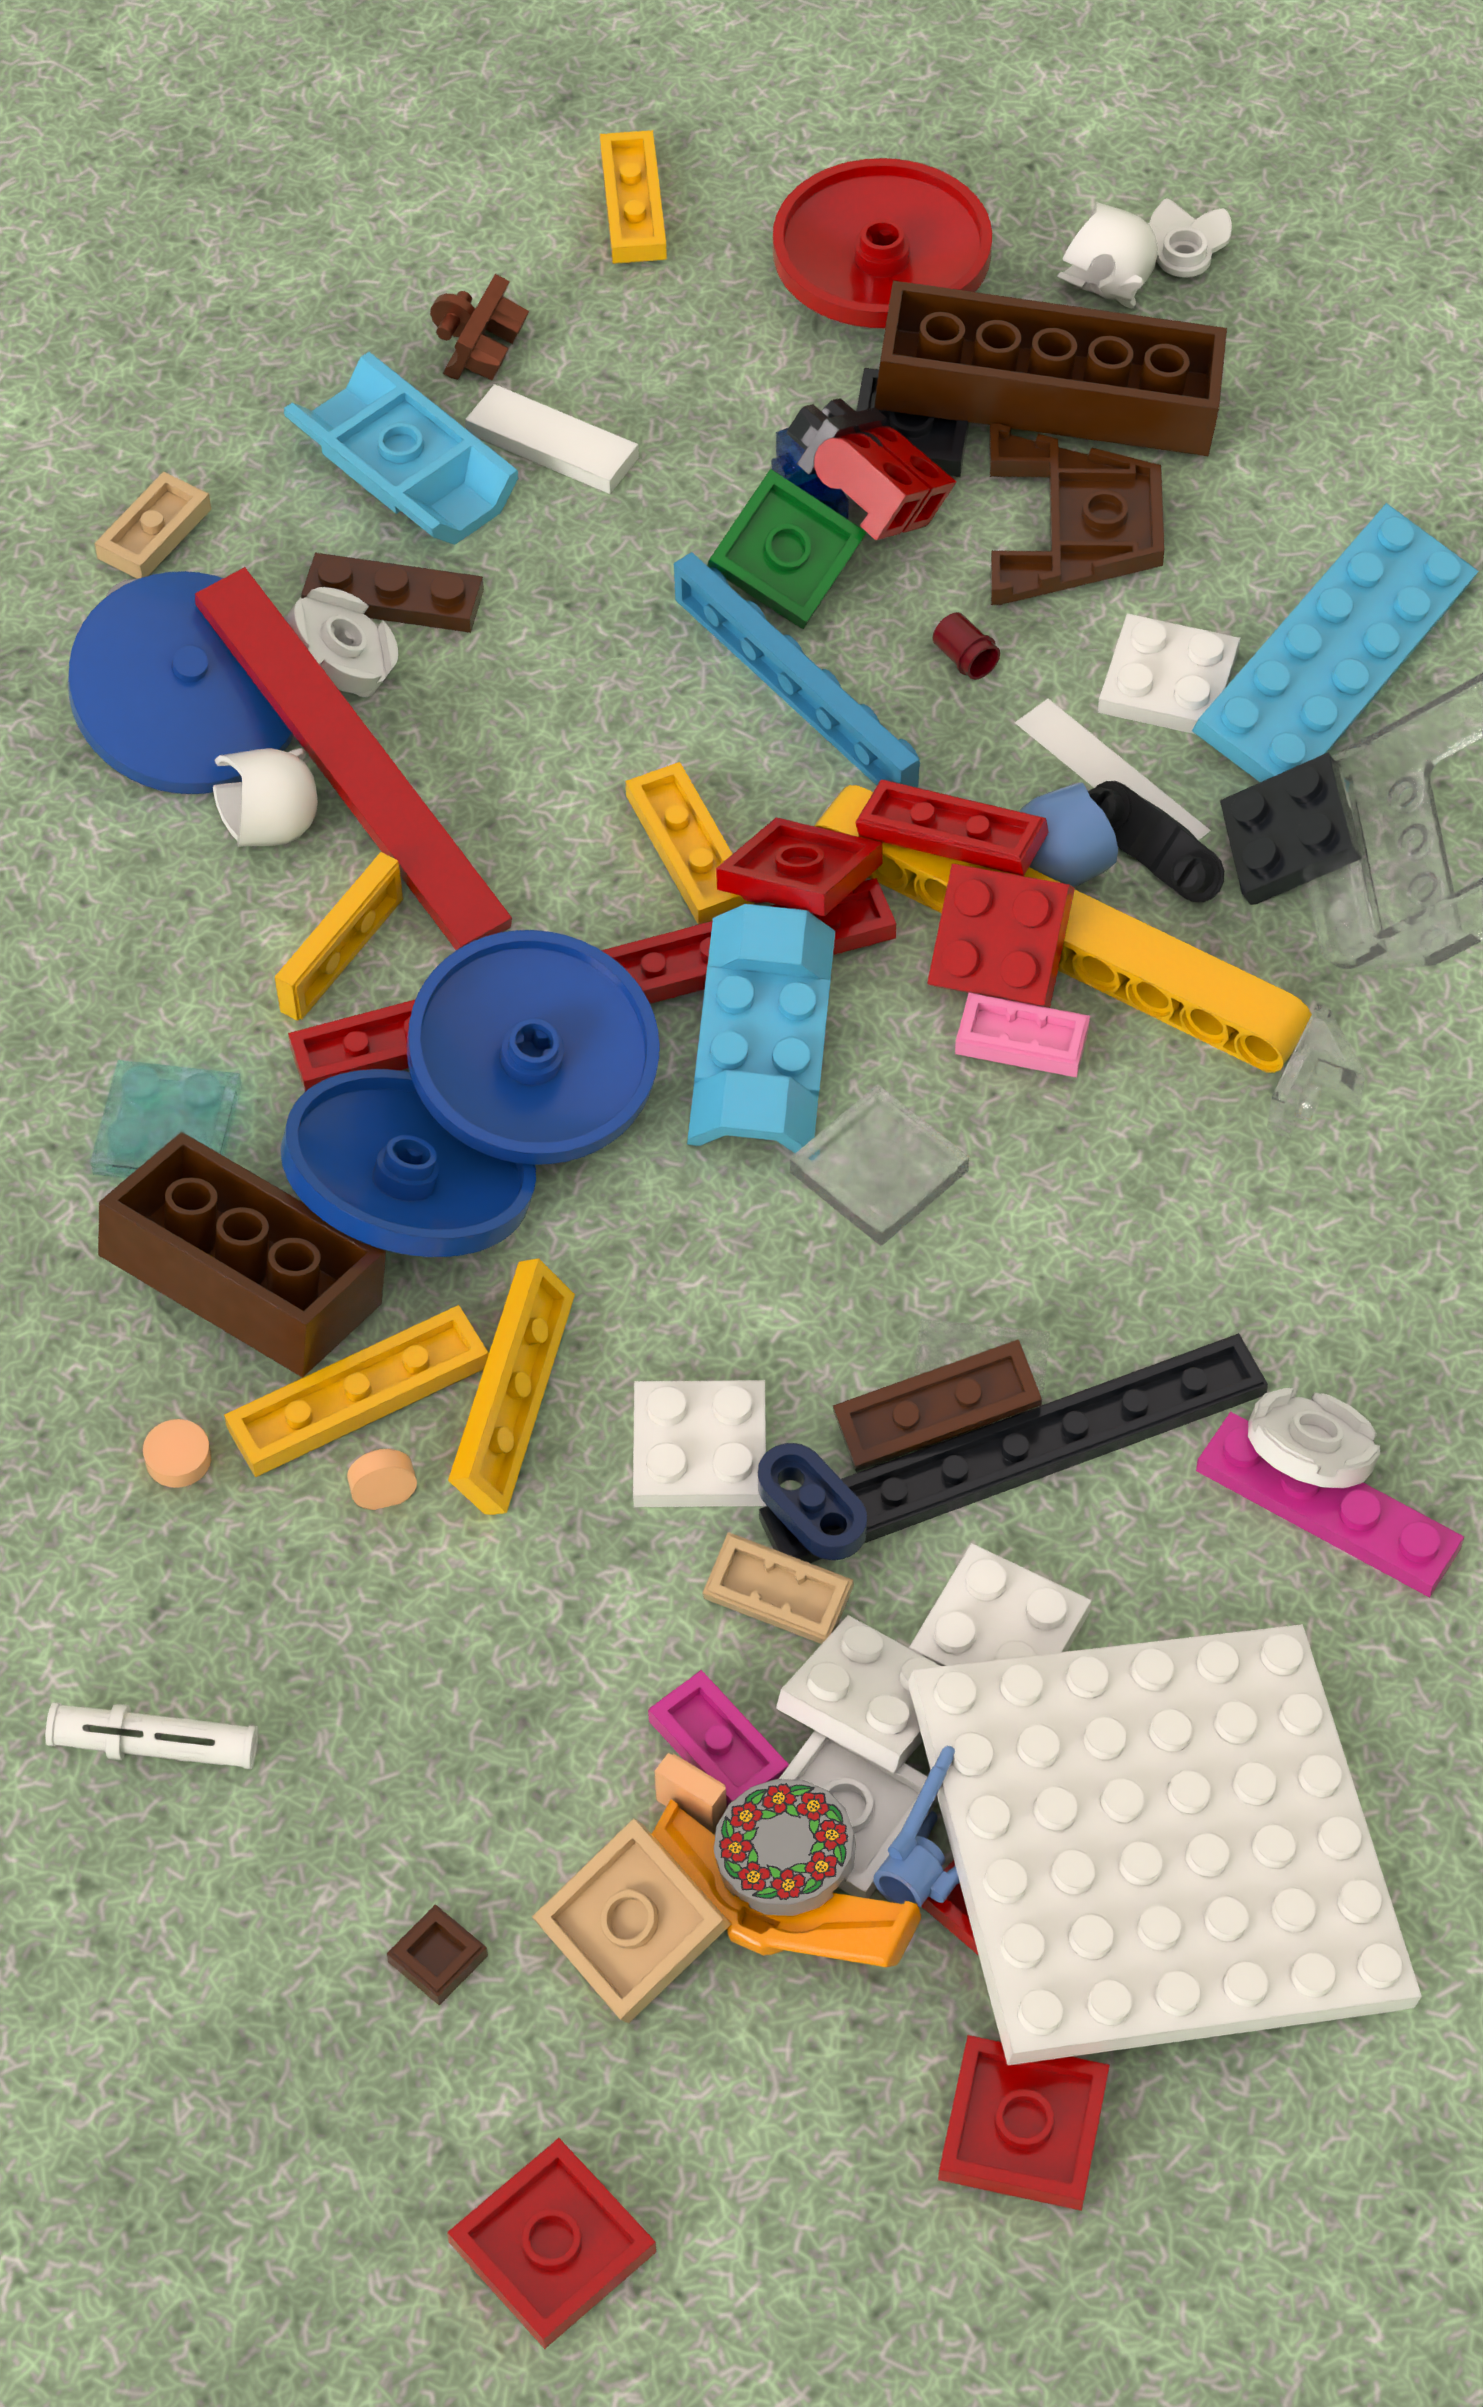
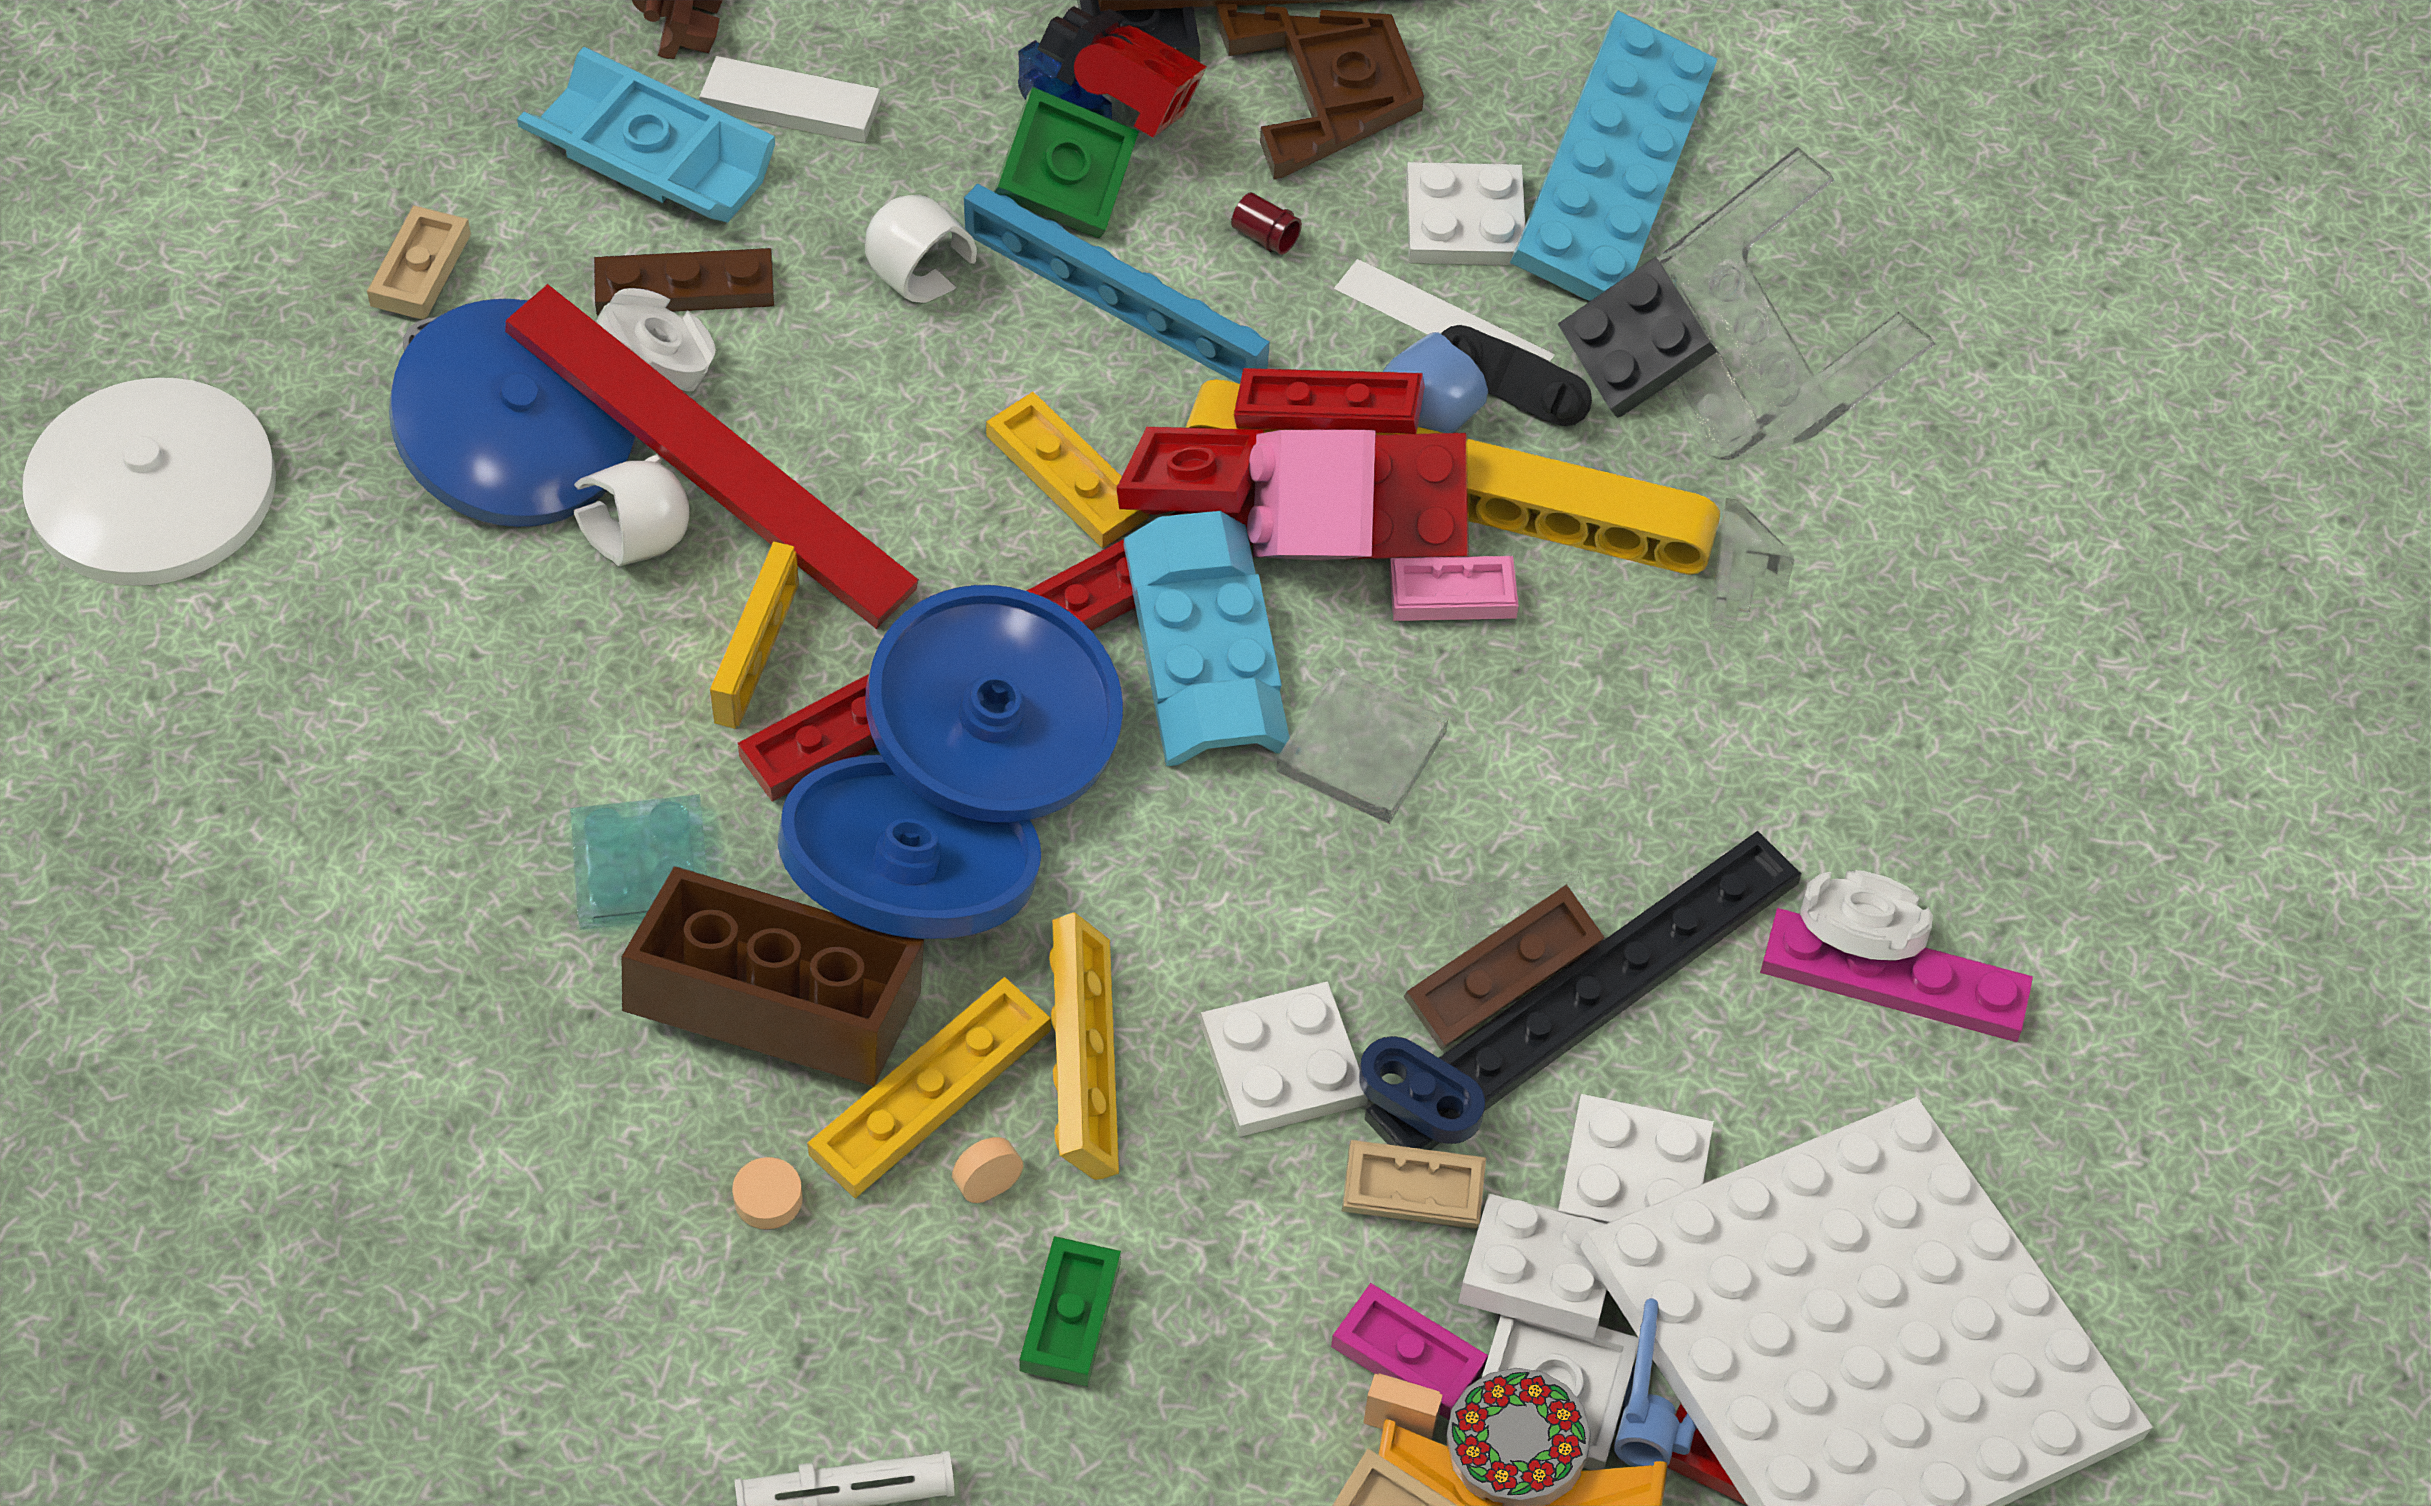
camera: 20 degrees left, 0 degrees up
(413, 1627) = (1070, 1311): none -> green plate
(609, 586) = (900, 238): none -> white helmet
(899, 913) = (1312, 494): none -> bright pink slope

